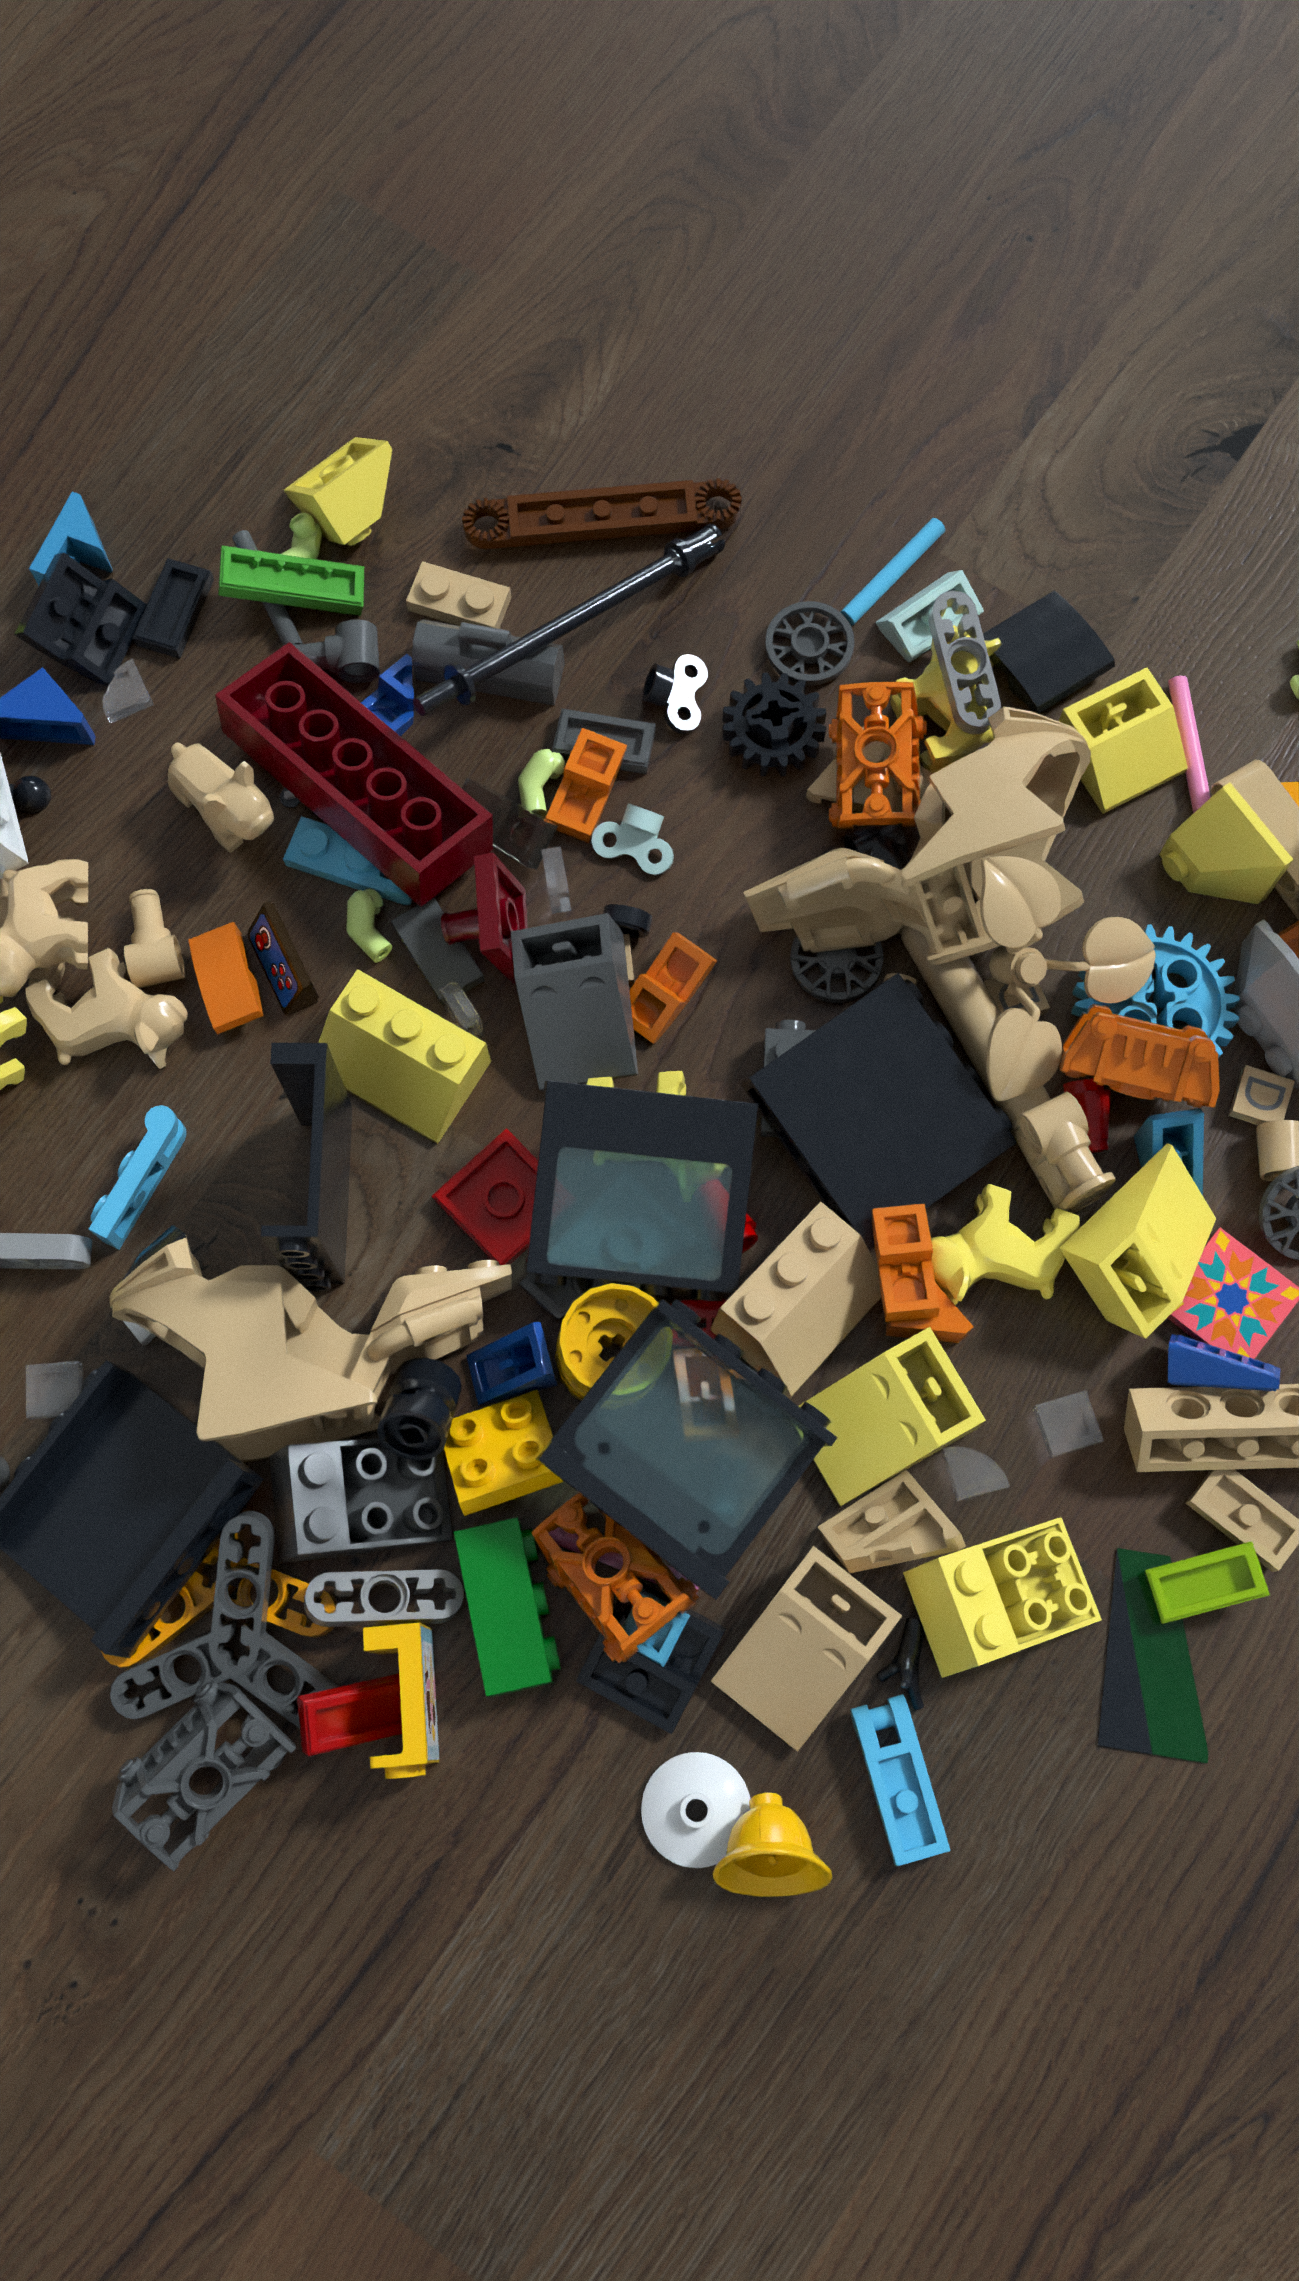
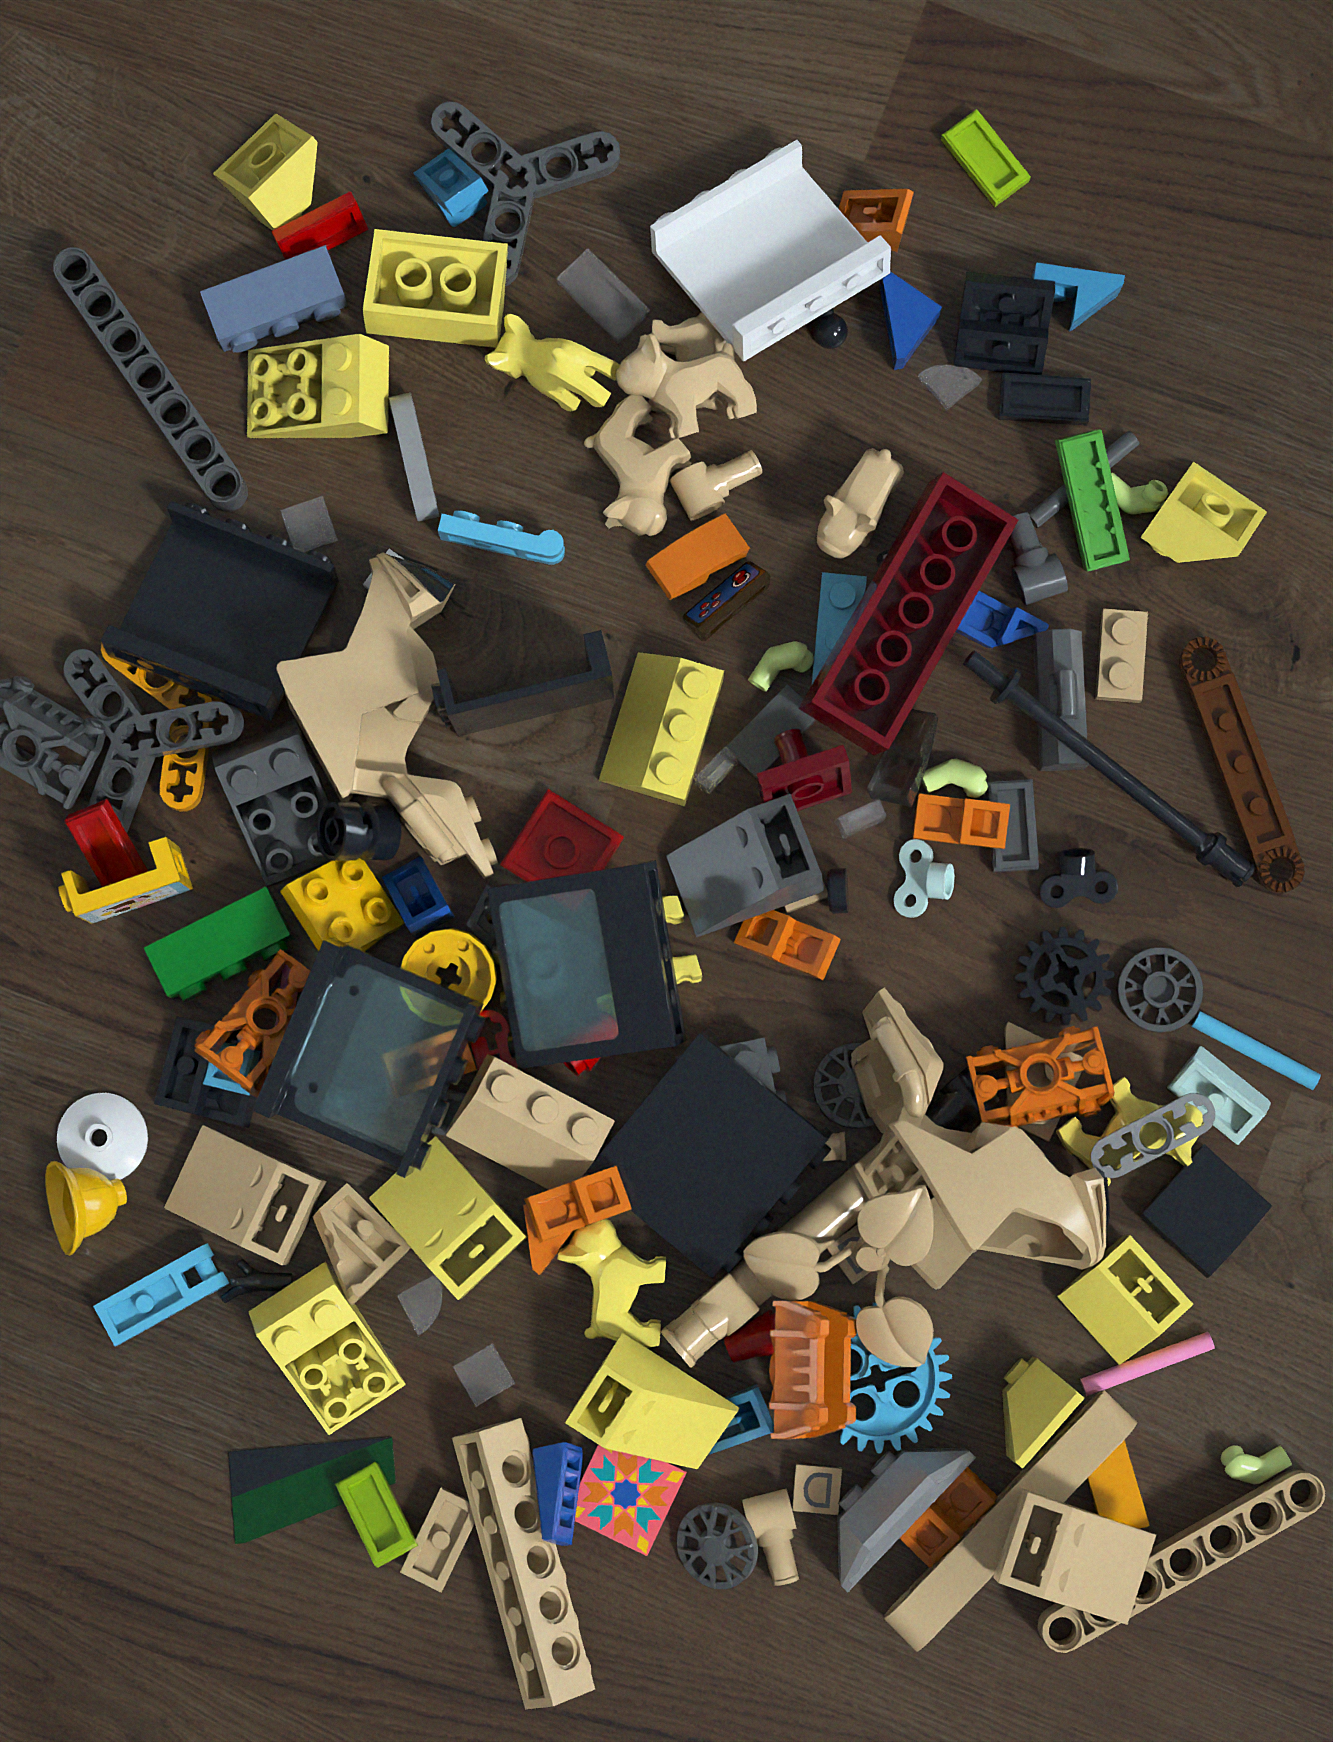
camera: 75 degrees right, 10 degrees up
(343, 1587) = (224, 873): light grey beam -> none

